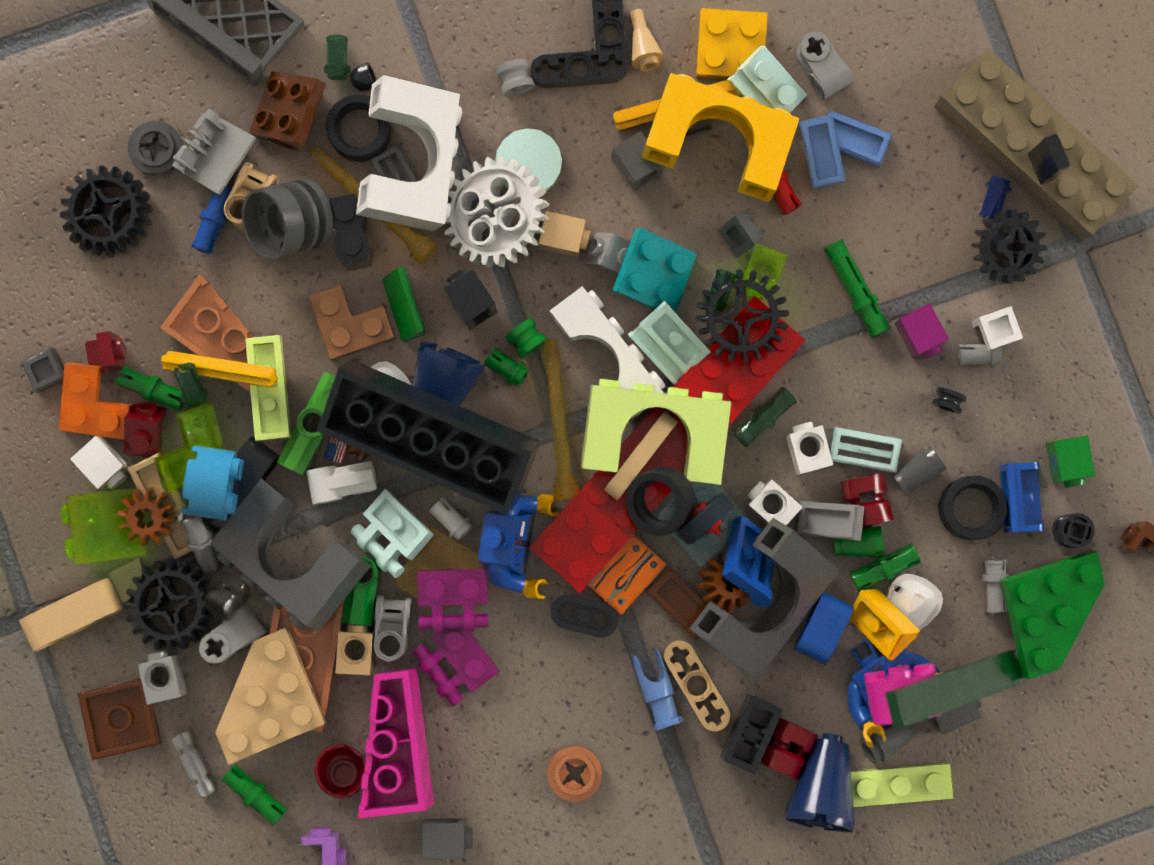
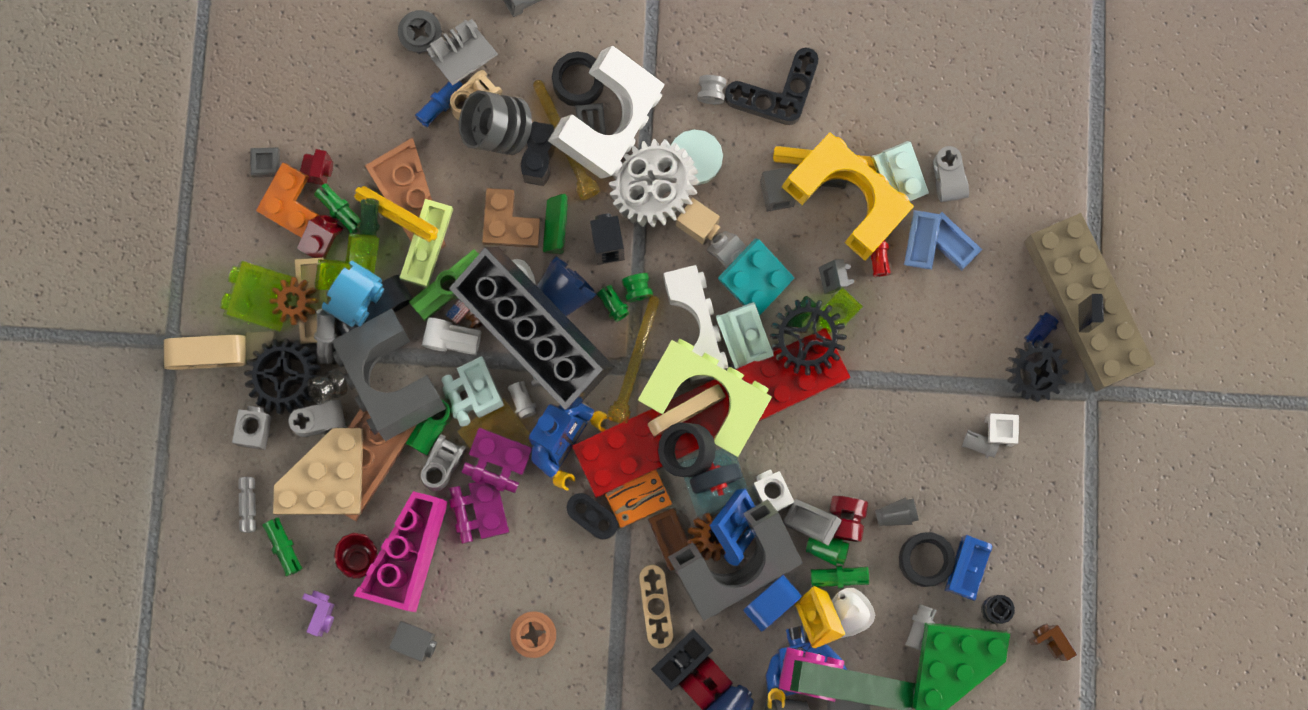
camera: 20 degrees right, 5 degrees down
(93, 187) = (340, 60): black gear -> none
(101, 464) = (276, 248): white brick -> none
(118, 719) = (205, 446): reddish brown tile -> none
(287, 109) = (530, 43): reddish brown plate -> none
(337, 57) = (584, 20): clear green pin -> none
(344, 662) = (394, 474): tan brick -> none
(363, 77) = (597, 43): black hinge -> none
(645, 50) = (819, 109): tan cone -> none
(658, 694) = (623, 601): medium blue piece -> none
(727, 40) = (885, 127): yellow plate -> none
(764, 416) = (794, 422): clear green pin -> none
(803, 463) = (815, 473): white brick -> none
(859, 293) = (906, 354): green pin -> none
(894, 455) = (841, 468): light aqua tile -> none
(922, 332) = (942, 408): magenta brick -> none
(949, 400) = (942, 469): black bush -> none
(1070, 461) = (1018, 554): green brick -> none

